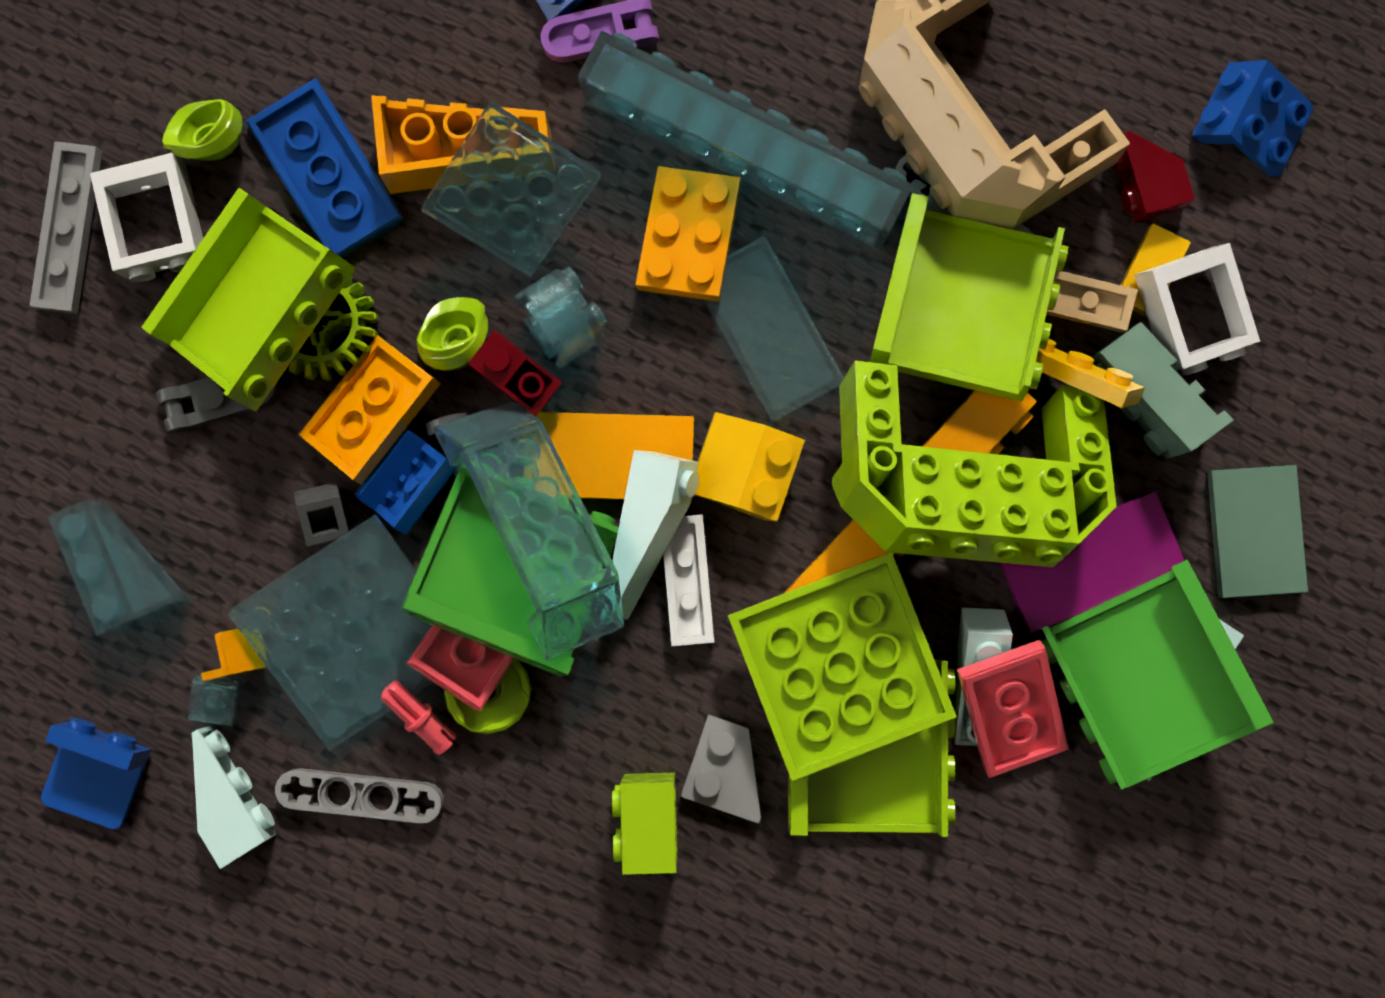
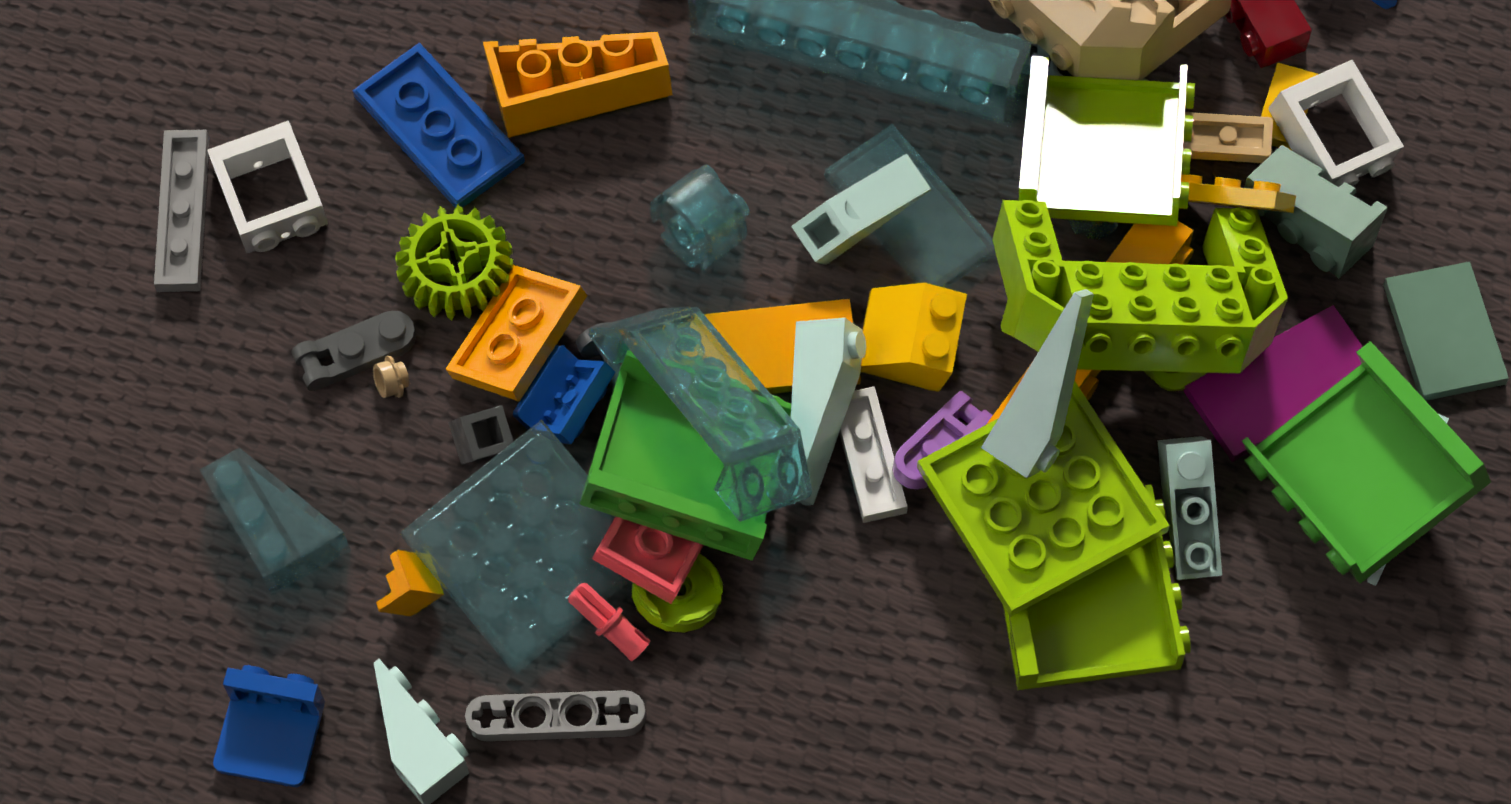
camera: 10 degrees left, 20 degrees down
(204, 130) = (315, 101): lime hat -> none
(213, 700) = (388, 637): clear light blue plate -> none
(247, 434) = (390, 377): none -> tan plate
(248, 299) = (382, 240): lime panel -> none
(452, 333) = (592, 253): lime hat -> none
(510, 189) = (635, 105): clear light blue plate -> none
(515, 373) = (659, 277): dark red slope -> none
(648, 823) = (869, 683): lime brick -> none
(688, 234) = (815, 132): light orange plate -> none
(717, 333) = (860, 209): none -> light aqua slope
(724, 770) = (940, 638): light grey wing -> none
(756, 579) = (935, 434): none -> medium lavender plate
(842, 609) = (1038, 408): none -> light aqua slope
(1013, 708) = (1229, 522): coral tile -> none

